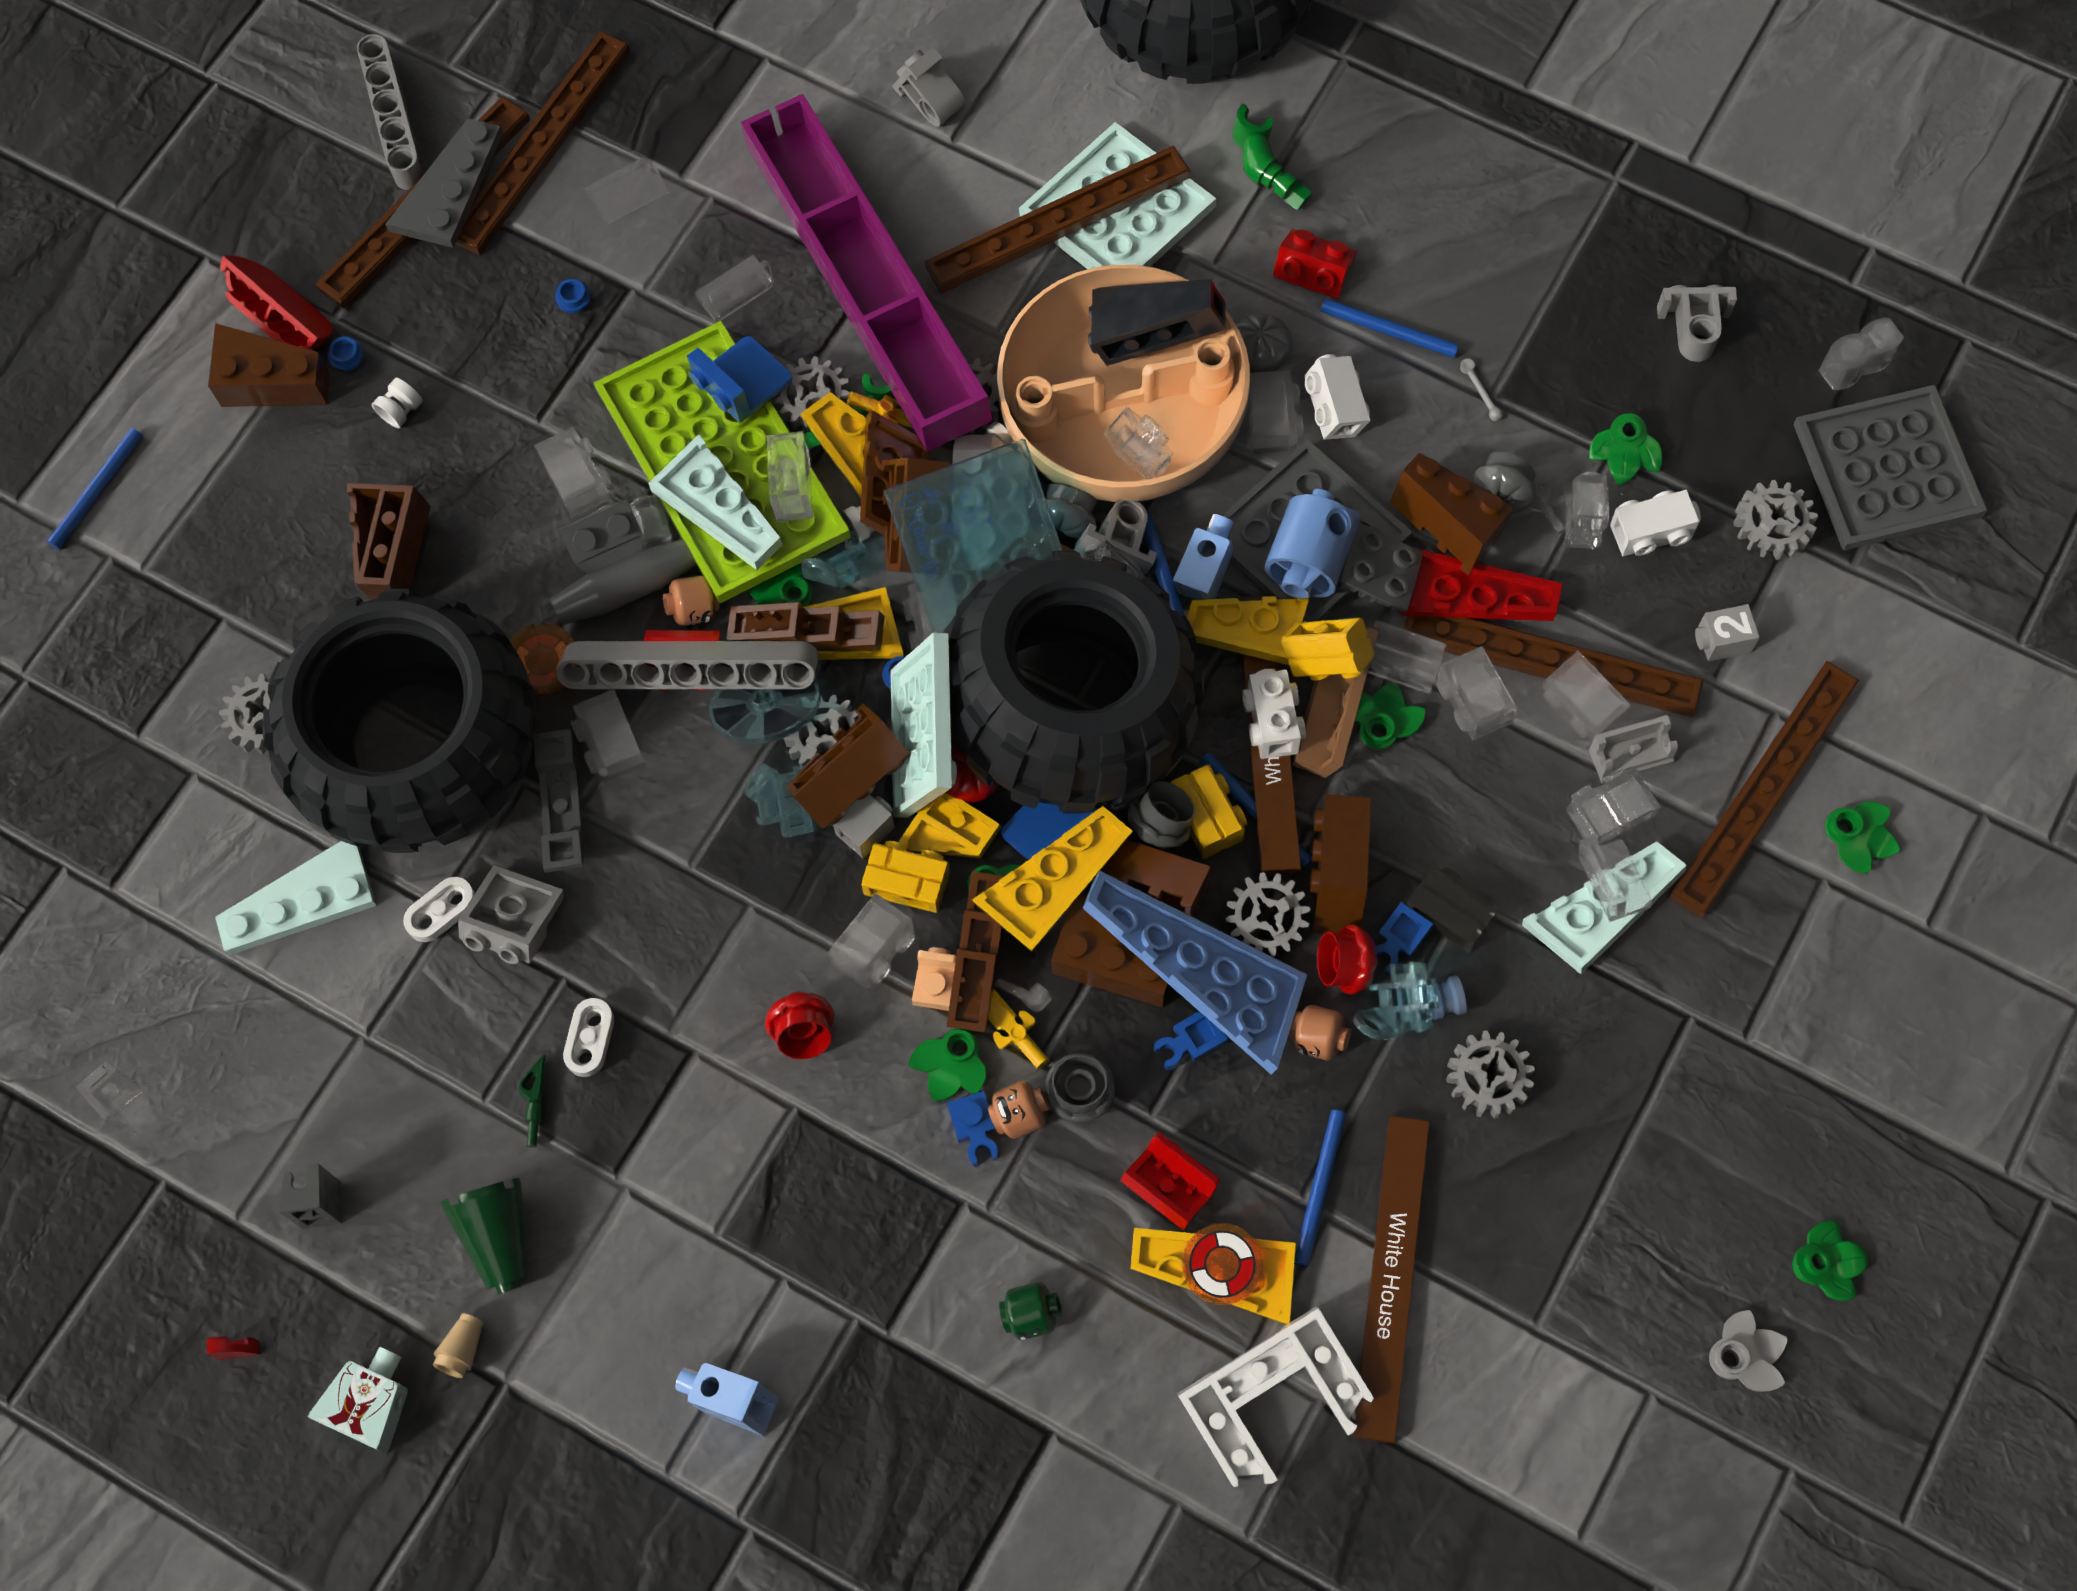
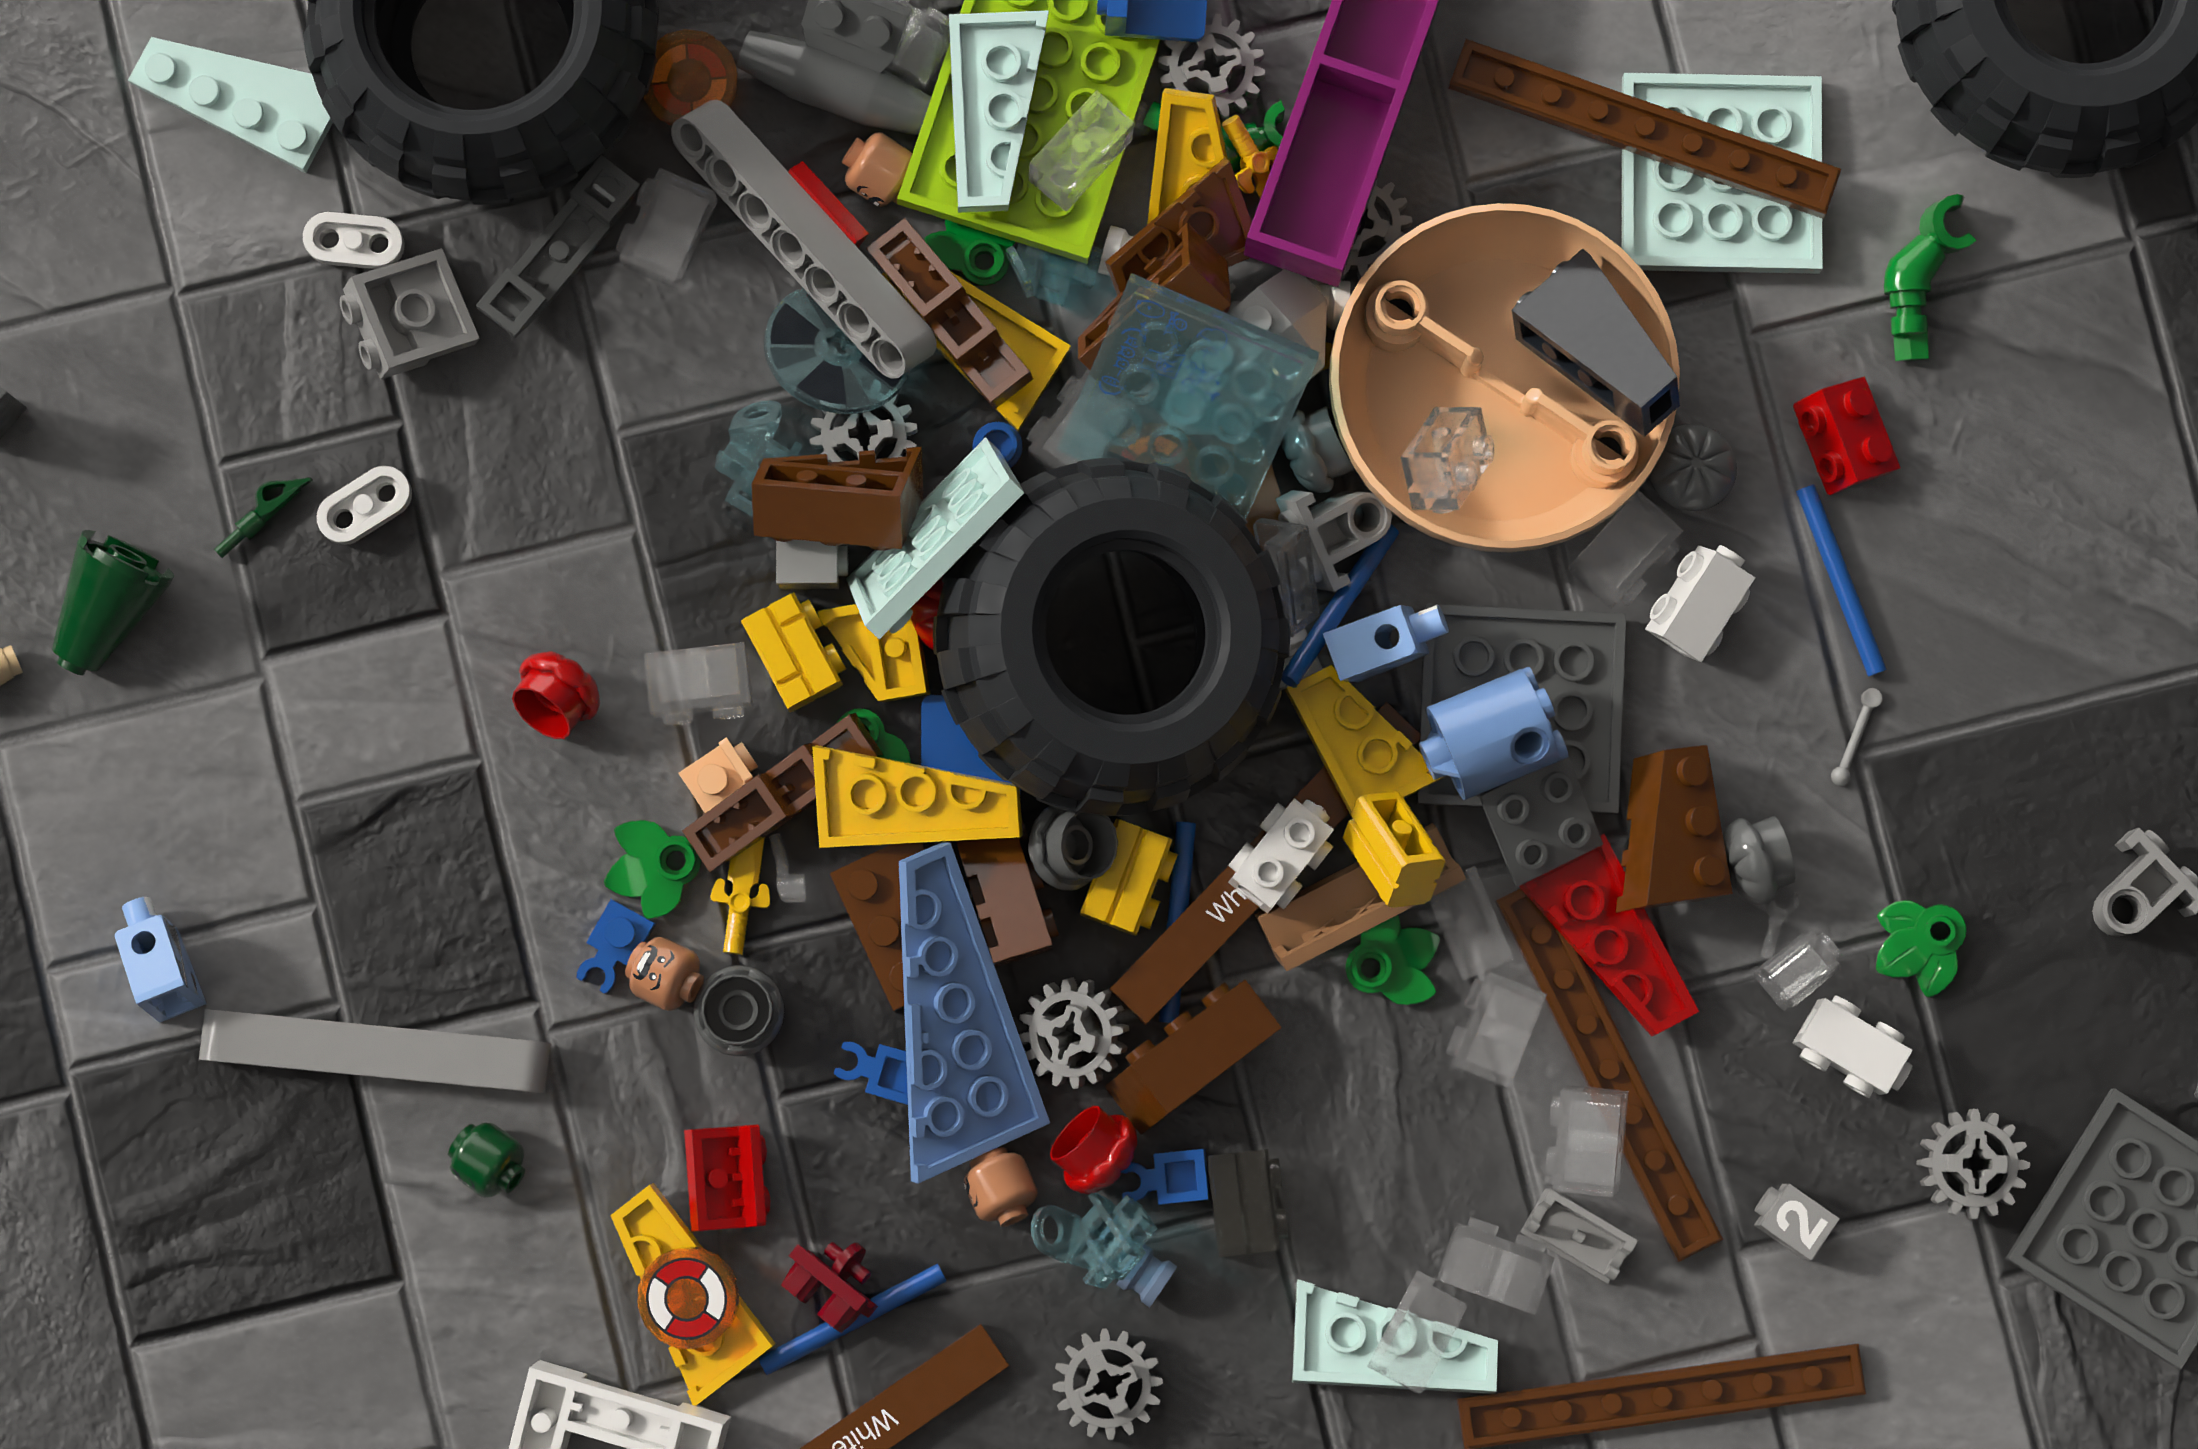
camera: 40 degrees right, 15 degrees up
(902, 1320) = (374, 1051): none -> light grey beam
(1306, 1172) = (846, 1301): none -> dark red hips

